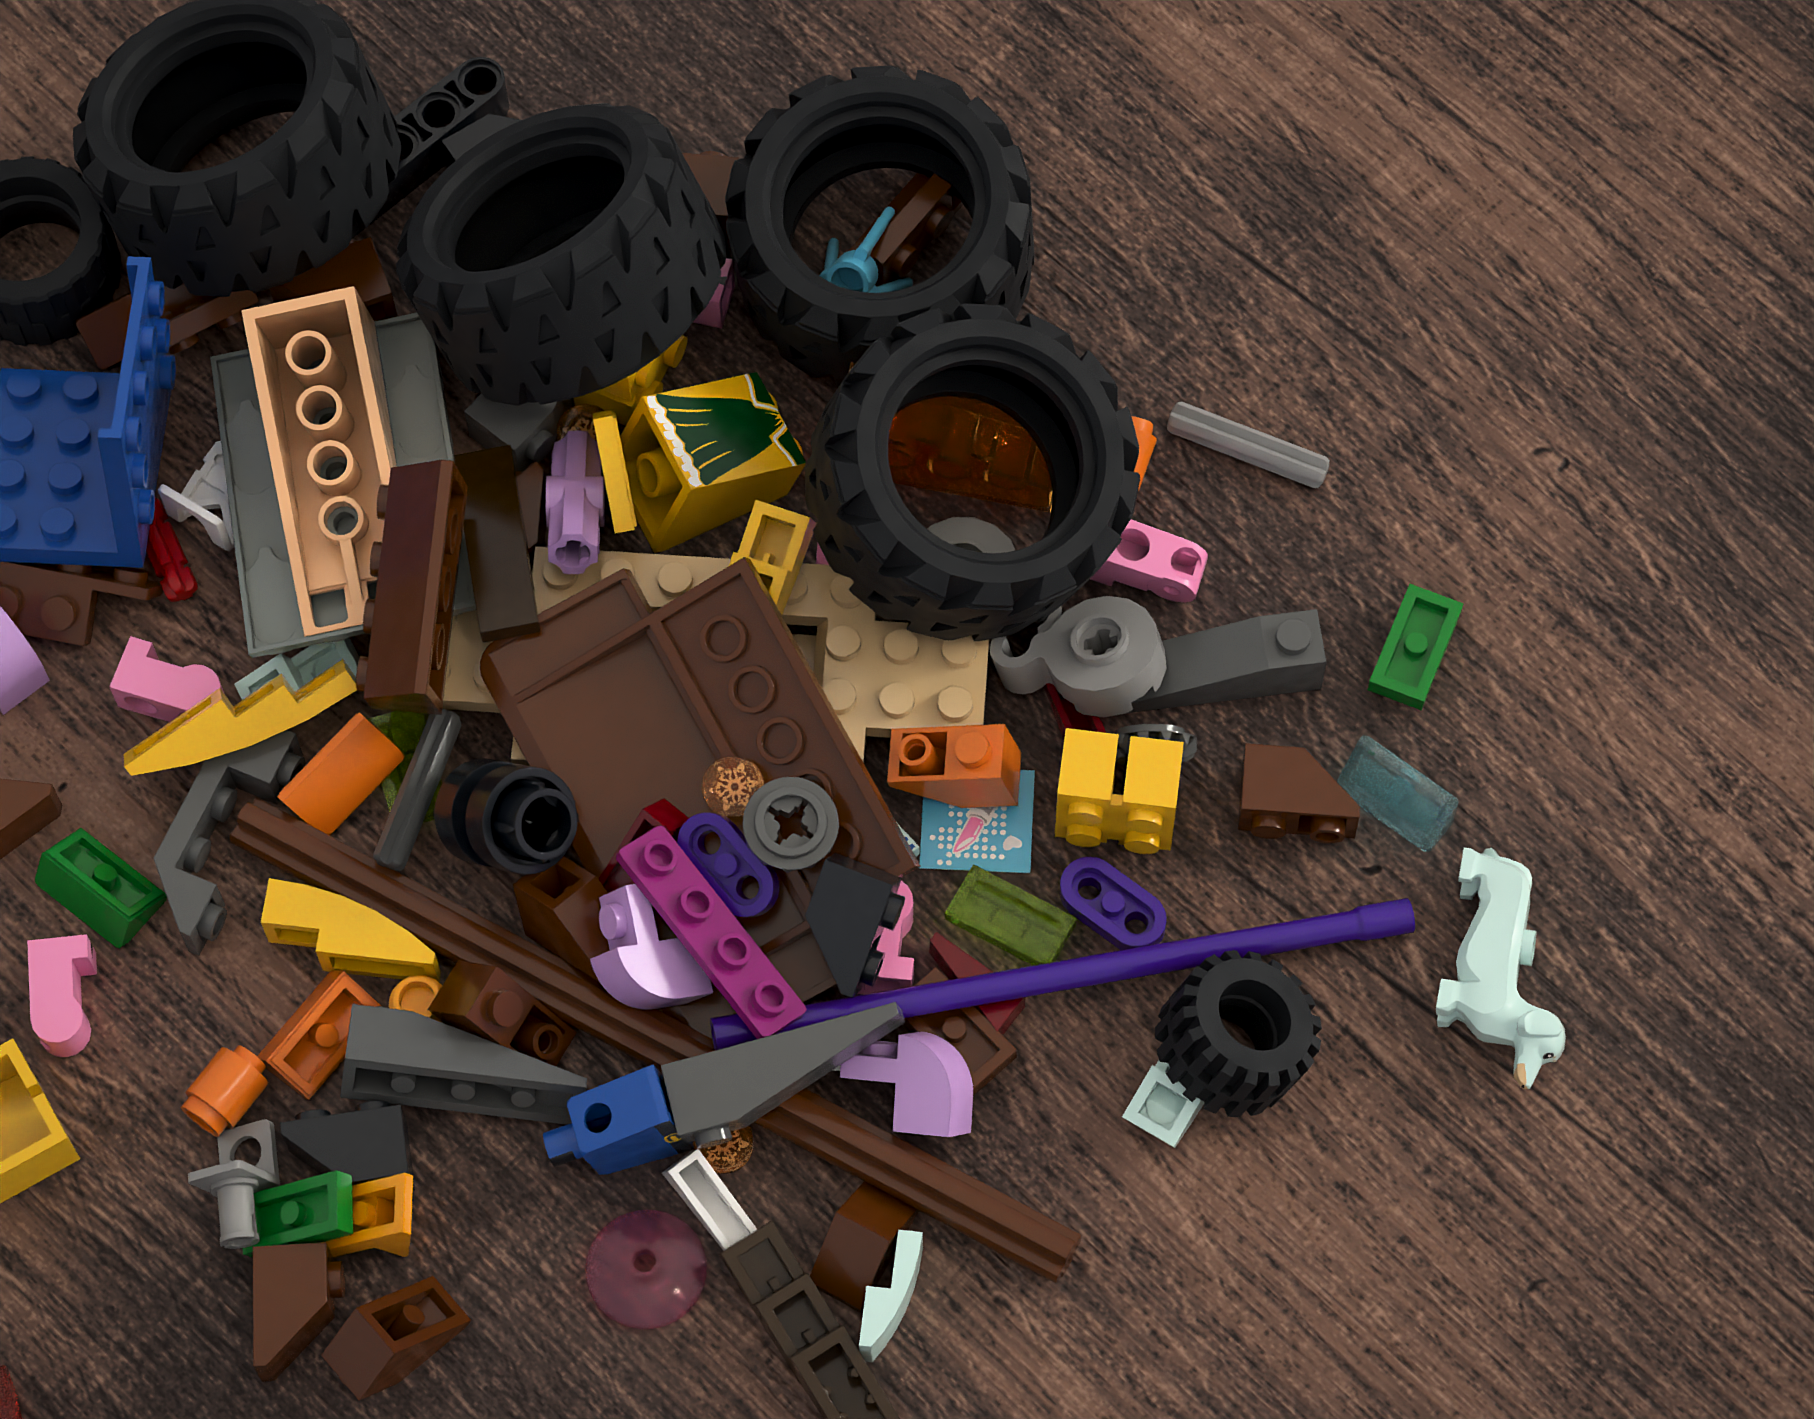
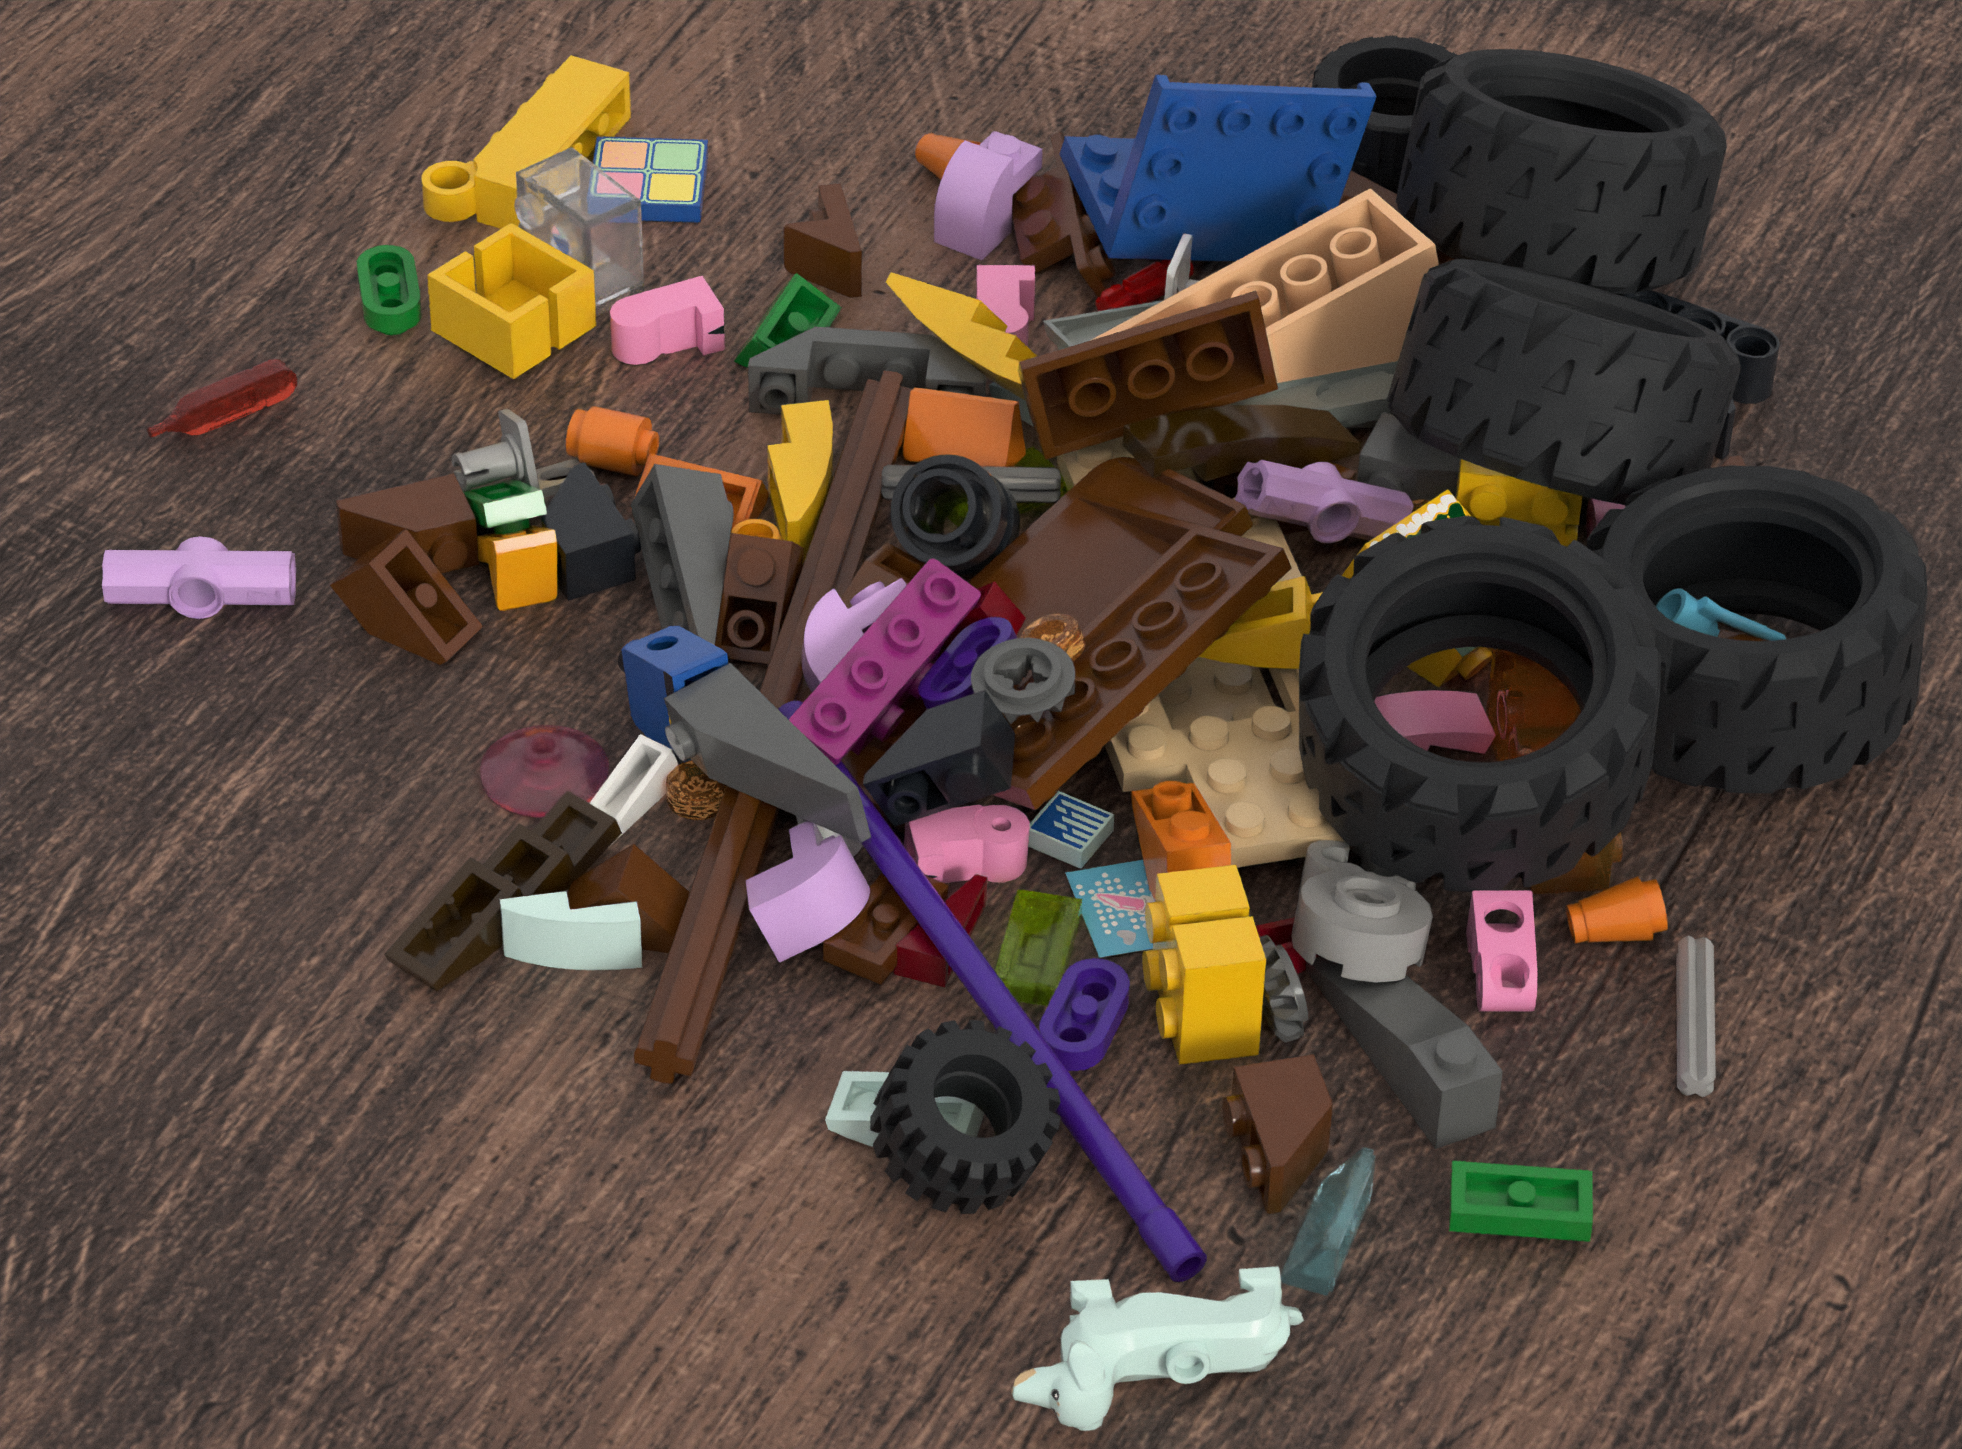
camera: 70 degrees right, 25 degrees down
(614, 471) = (1362, 501): yellow tile -> none

